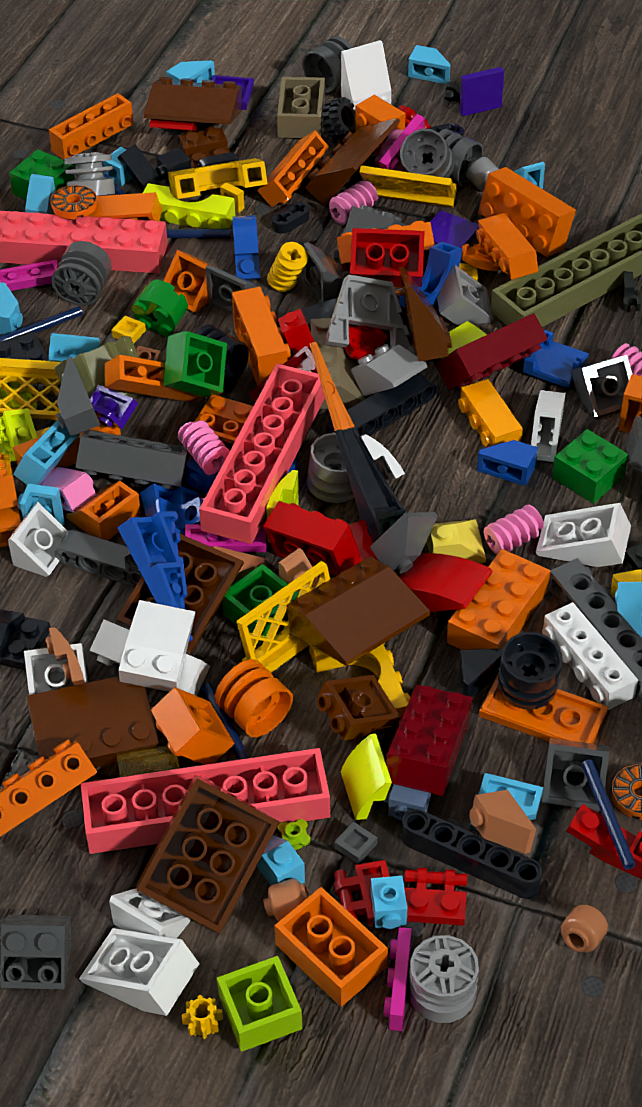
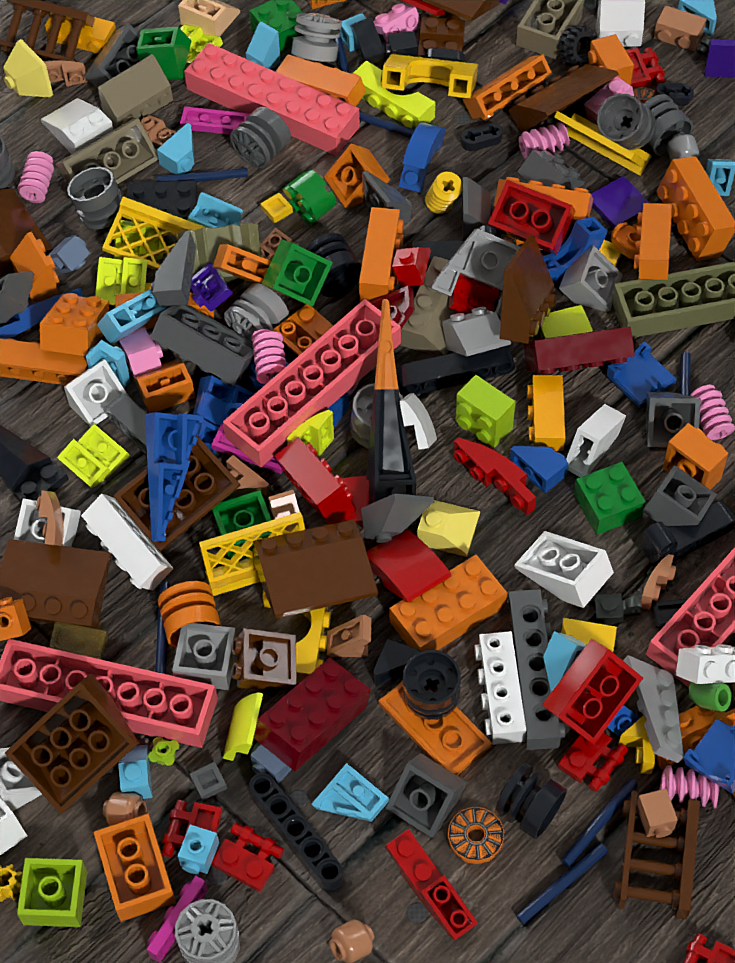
camera: 25 degrees right, 10 degrees up
(63, 200) = (286, 52): tile -> none
(66, 598) = (93, 456): none -> neon yellow slope
(156, 646) = (126, 537): white slope -> none
(157, 144) = (400, 19): none -> bright pink bracket
(165, 414) = (256, 310): none -> light grey wheel
(191, 727) = (124, 622): orange brick -> none
(231, 191) = (440, 98): yellow plate -> none
(290, 725) = (205, 654): none -> light grey slope
(392, 158) = (630, 86): dark pink plate -> none
(420, 83) = (680, 28): none -> nougat brick
(421, 664) = (350, 638): none -> nougat slope
(435, 430) = (484, 411): none -> lime brick
(467, 476) = (490, 466): none -> red slope
(502, 821) = (329, 816): nougat slope -> none
(514, 529) = (502, 537): bright pink piece -> none
(591, 346) = (685, 373): none -> dark blue bar
(608, 815) = (423, 849): dark blue piece -> none

